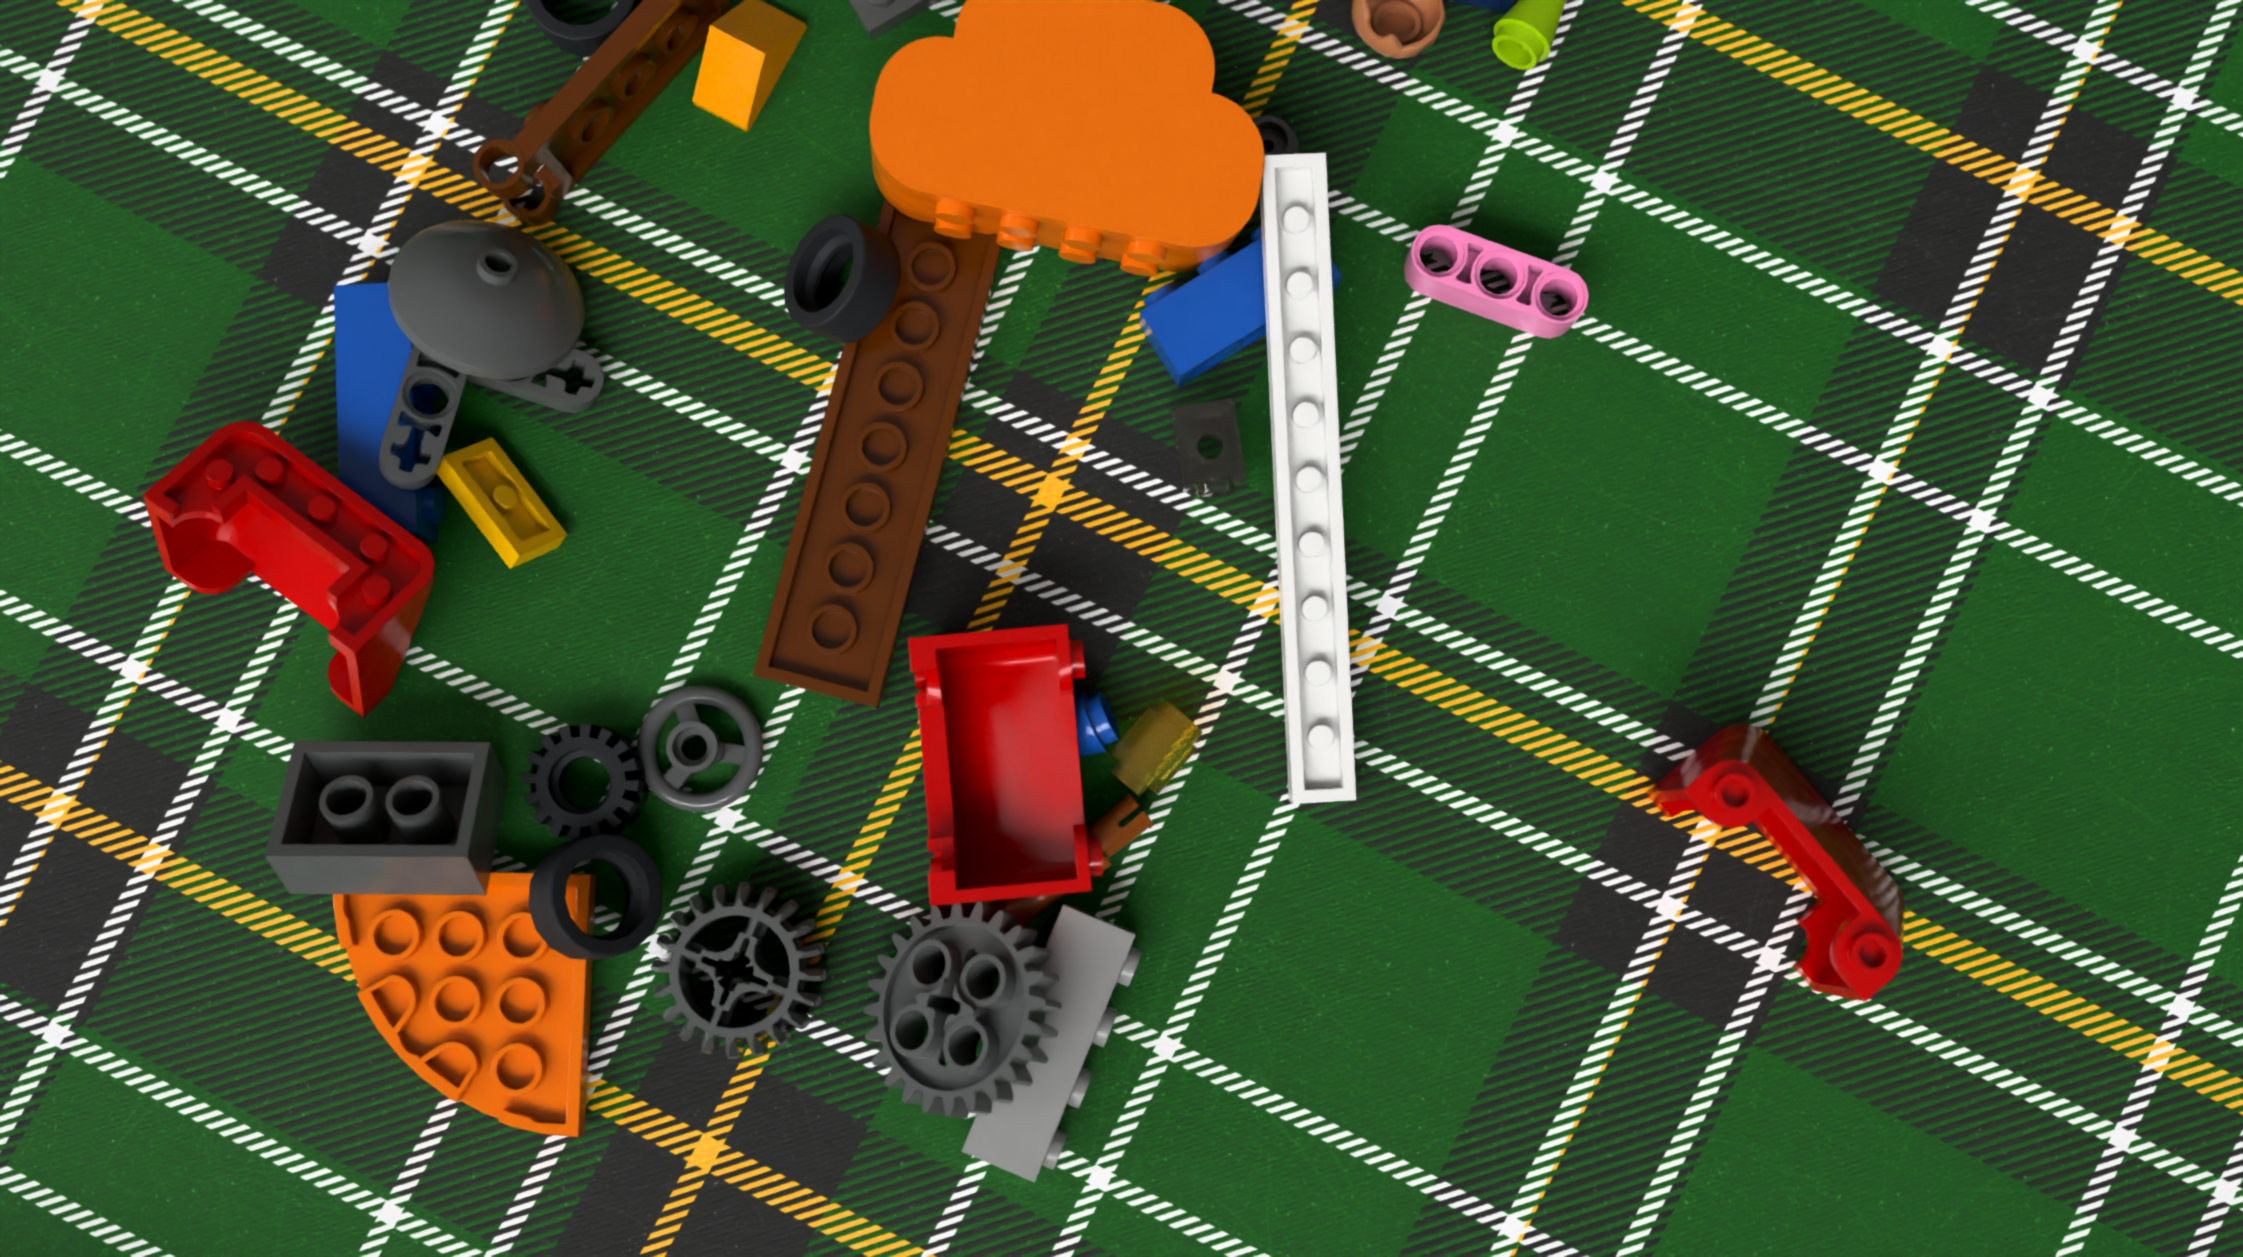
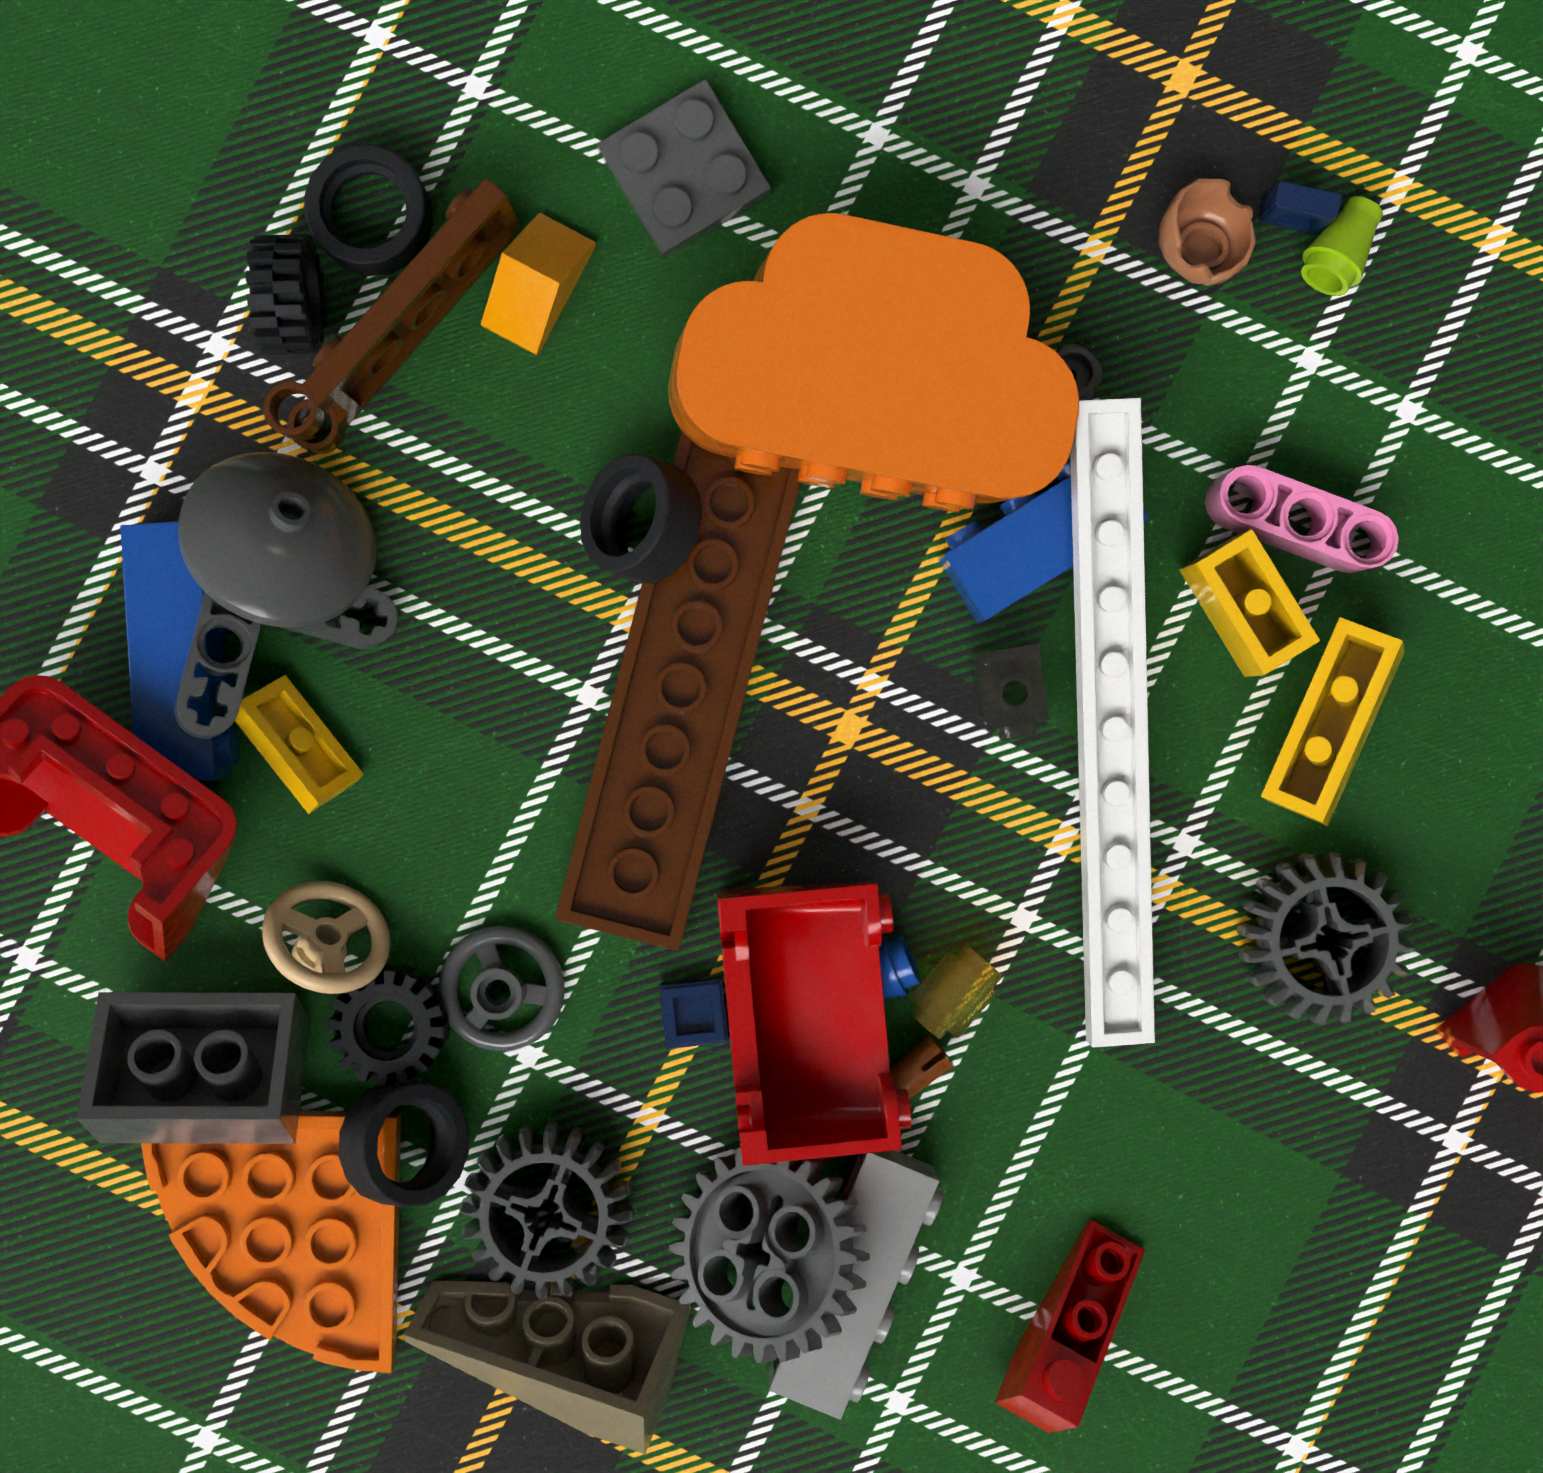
camera: 10 degrees left, 5 degrees up
(501, 66) = (285, 294): none -> black tyre
(522, 696) = (321, 943): none -> tan piece
(767, 1122) = (581, 1357): none -> dark tan wedge
(891, 773) = (694, 1012): none -> dark blue tile
(1274, 1097) = (1071, 1332): none -> red slope
(1442, 360) = (1249, 604): none -> yellow brick
(1529, 476) = (1334, 721): none -> yellow brick
(1581, 682) = (1341, 985): none -> dark grey gear

